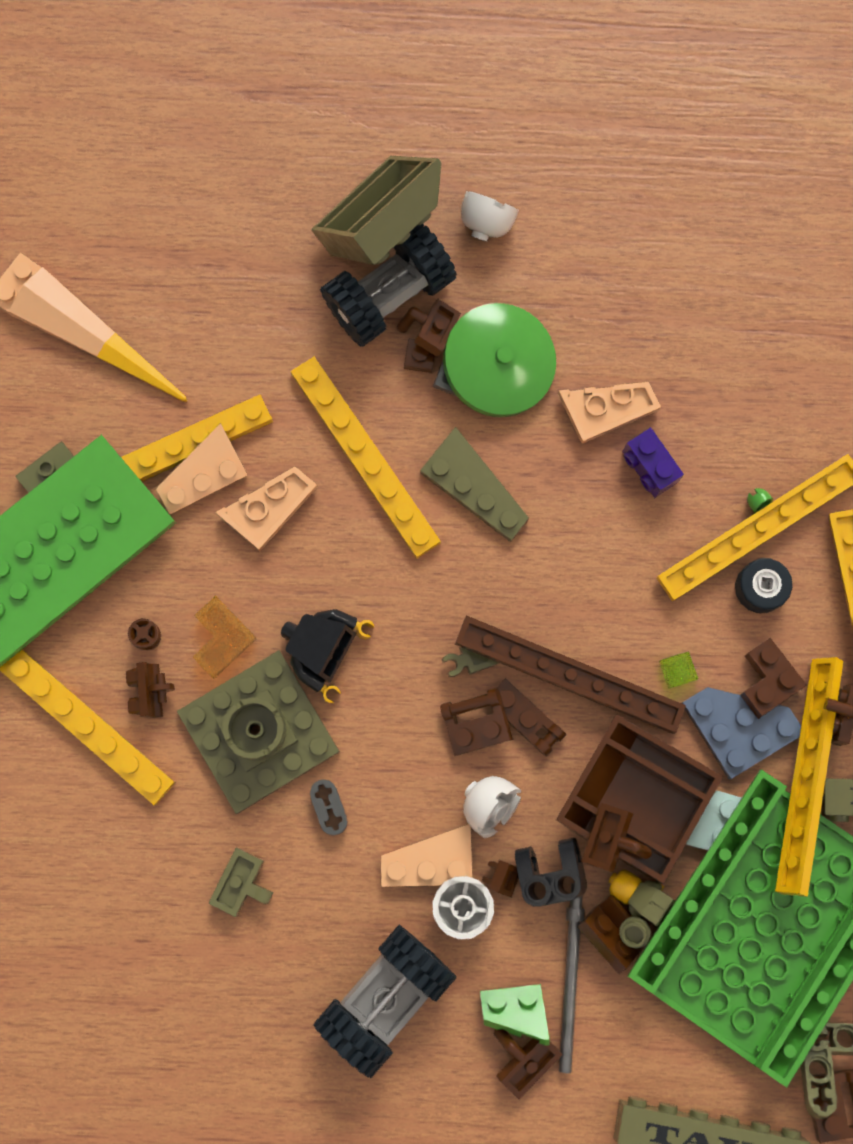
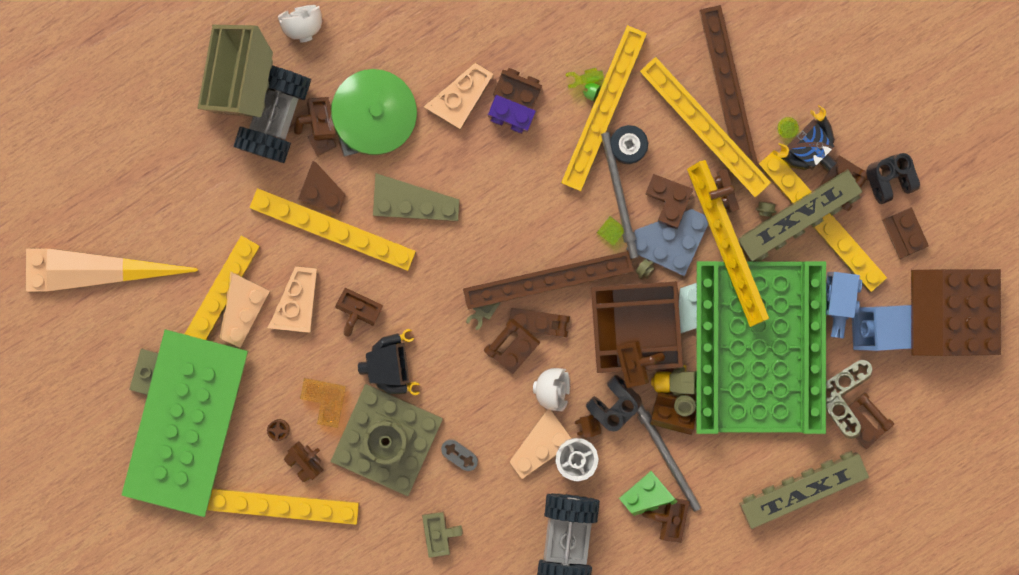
camera: 35 degrees left, 10 degrees up
(332, 559) = (358, 308): none -> reddish brown plate
(382, 407) = (321, 190): none -> reddish brown wing
(681, 440) = (518, 88): none -> reddish brown bracket
(690, 740) = (645, 269): none -> olive plate
(697, 687) = (629, 236): none -> flat silver bar
(768, 480) = (590, 76): none -> clear neon green plate

